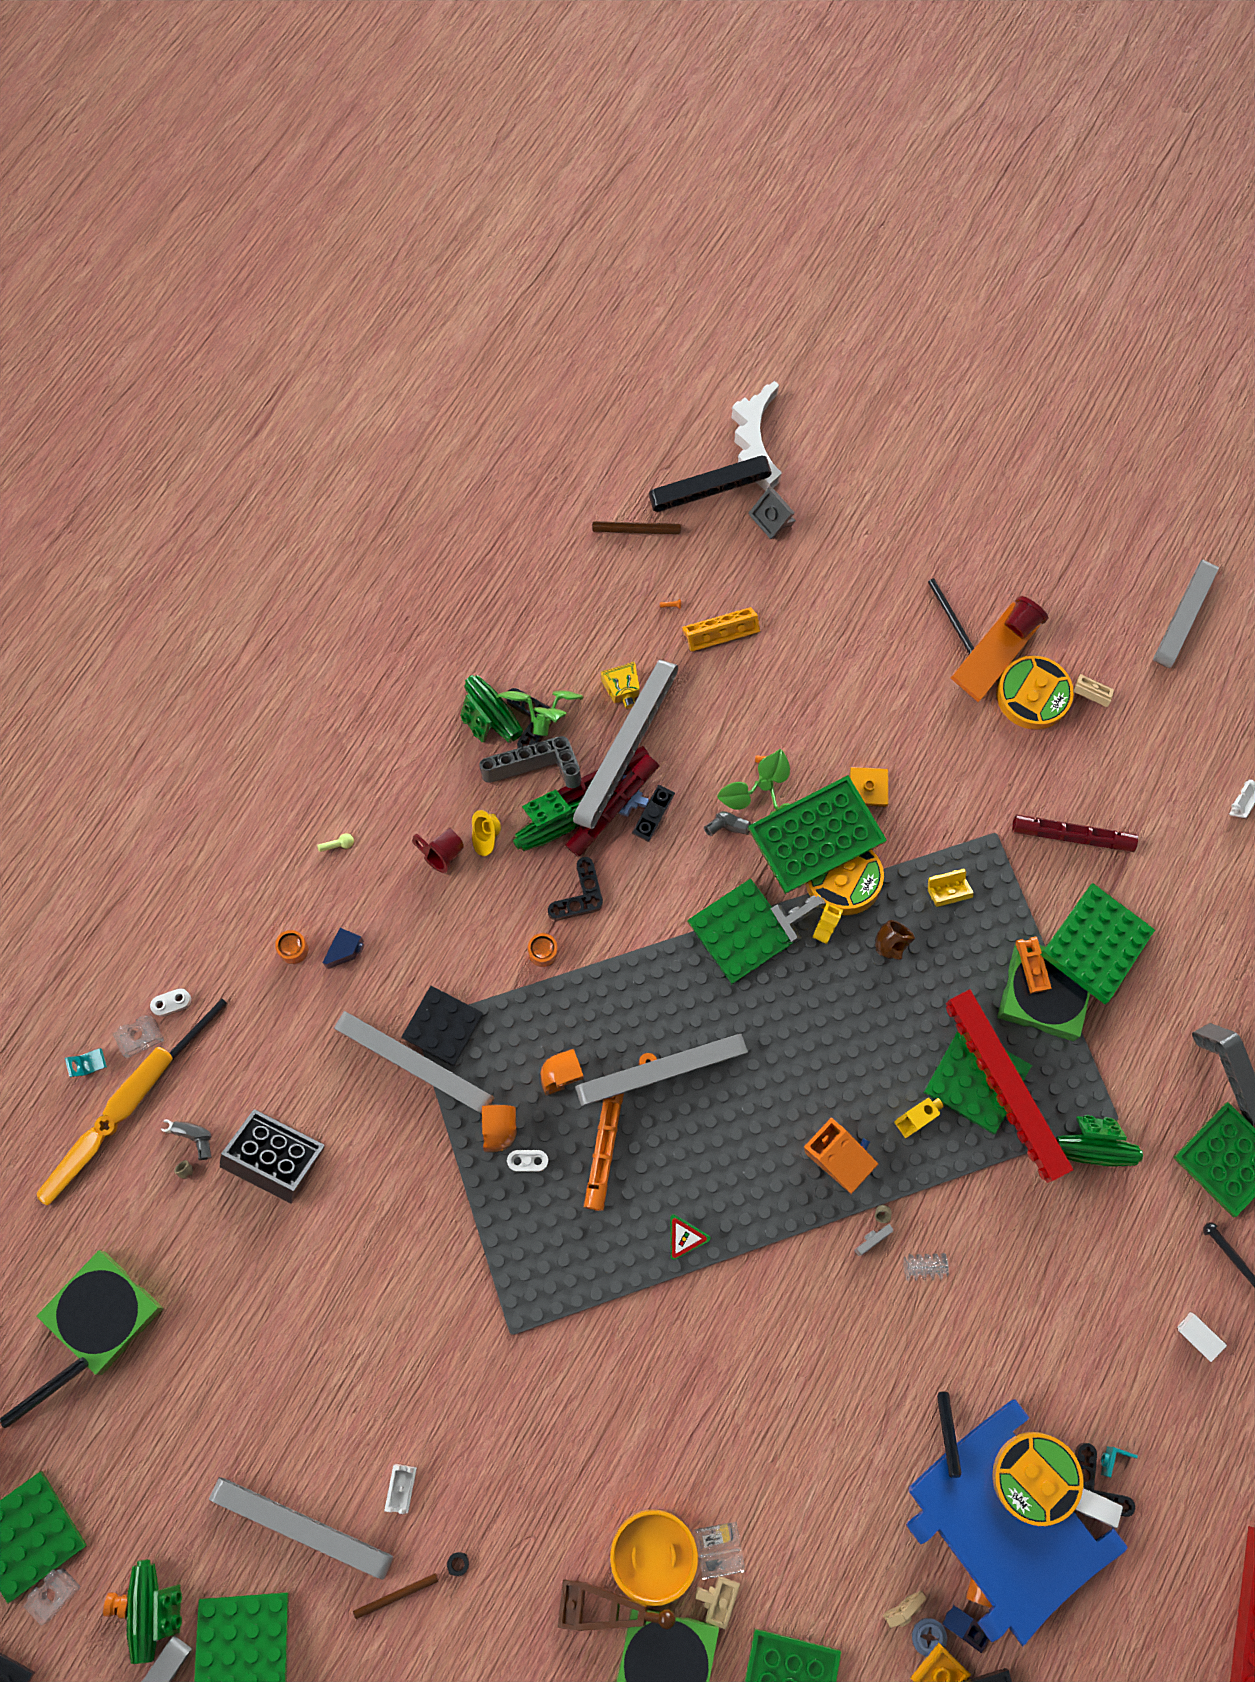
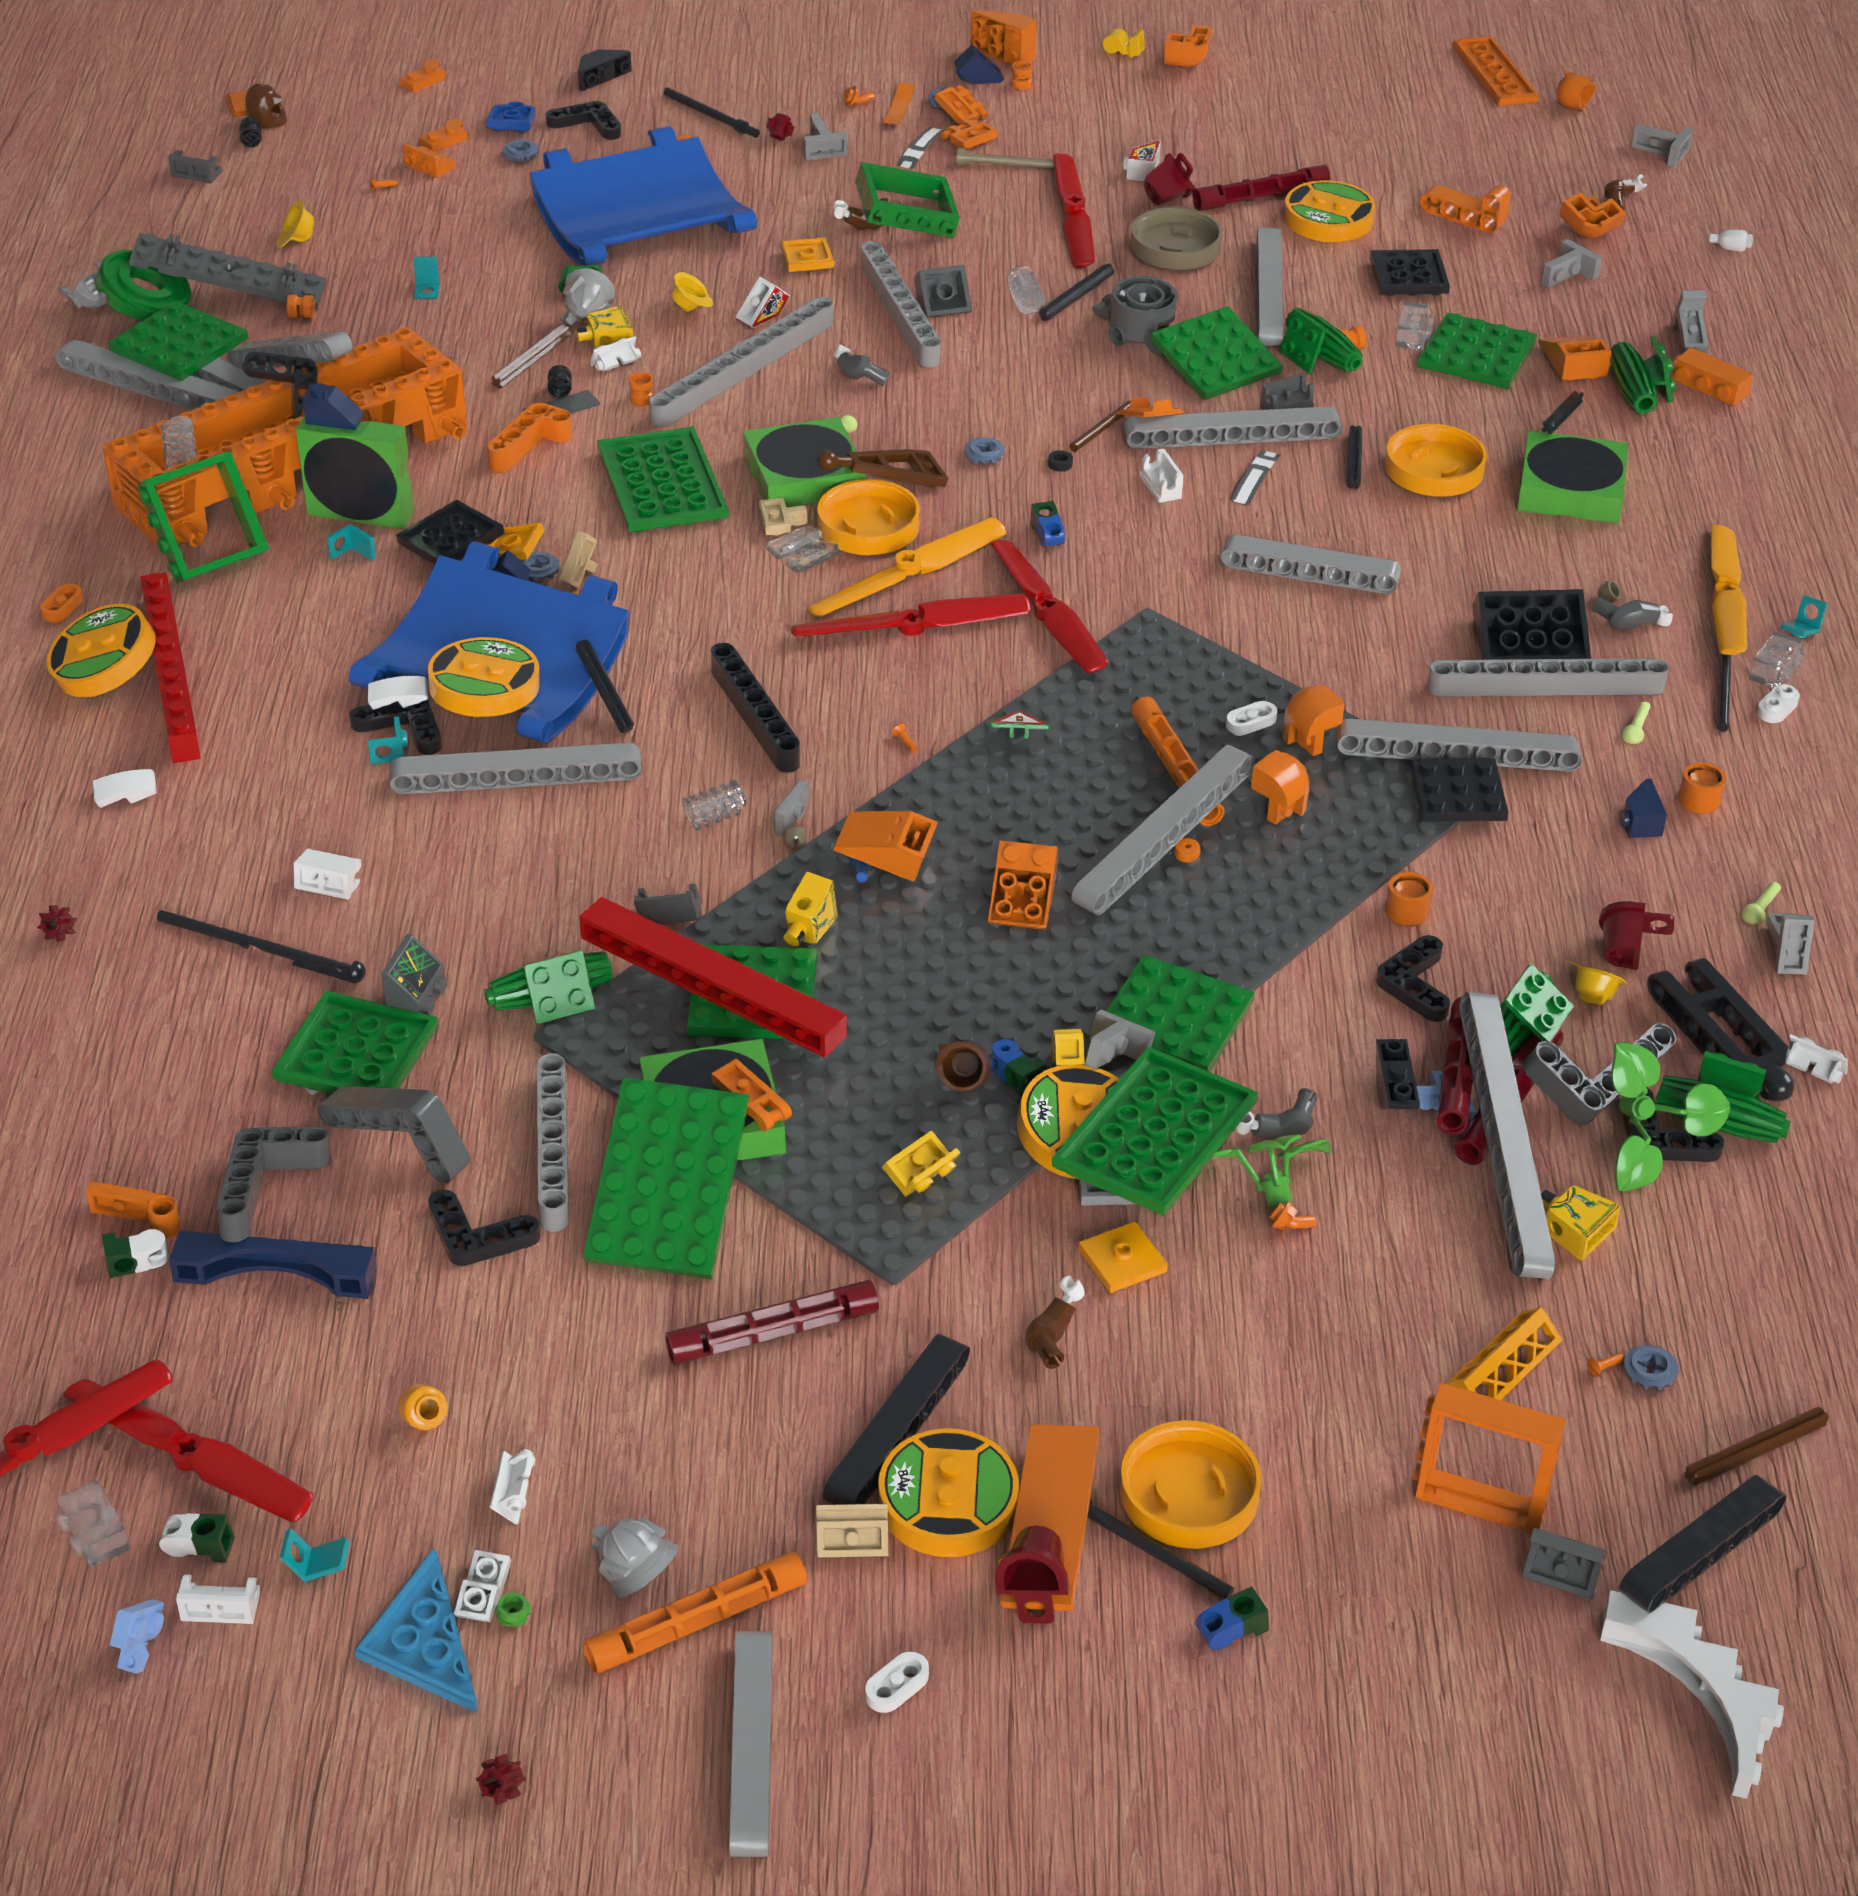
camera: 155 degrees right, 30 degrees down
(183, 1391) = (1435, 460): none -> light orange brick
(229, 1547) = (1287, 393): none -> dark grey hinge
(233, 1439) = (1354, 456): none -> black axle
(284, 1027) = (1633, 733): none -> yellowish green bar
(293, 1095) = (1547, 677): none -> light grey beam
(322, 1459) = (1253, 477): none -> sticker
(348, 804) = (1794, 939): none -> light grey bracket
(353, 1582) = (1140, 408): none -> orange piece
(366, 1316) = (1267, 558): none -> light grey beam
(406, 712) = (1829, 1063): none -> white hinge
(446, 716) = (1721, 998): none -> black piece
(506, 1620) = (978, 450): none -> sand blue gear
(524, 1471) = (1047, 527): none -> blue leg
(579, 1394) = (1057, 616): none -> red piece
(632, 1482) = (910, 562): none -> light orange piece
(652, 582) = (1664, 1366): none -> sand blue gear
(709, 1416) = (930, 615): none -> red piece
(759, 1275) = (899, 730): none -> orange piece
(771, 1078) = (1023, 885): none -> orange slope
(779, 523) = (1473, 1496): none -> orange window
(852, 1374) = (755, 707): none -> black beam
(859, 933) = (1014, 1065): none -> leg
(919, 635) = (1190, 1484): none -> light orange brick
(936, 759) = (1050, 1326): none -> reddish brown arm
(940, 562) = (1233, 1619): none -> leg
(995, 1184) = (669, 907): none -> dark grey hinge
(1039, 742) = (897, 1420): none -> black beam
(1039, 1384) = (515, 768): none -> light grey beam
(1106, 610) = (894, 1684): none -> white plate
(1135, 1027) = (552, 1142): none -> light grey beam
(1182, 1189) = (413, 978): none -> slope
(1184, 687) = (694, 1612): none -> orange piece
(1201, 729) = (632, 1553): none -> light grey helmet
(1209, 974) = (475, 1240): none -> black beam

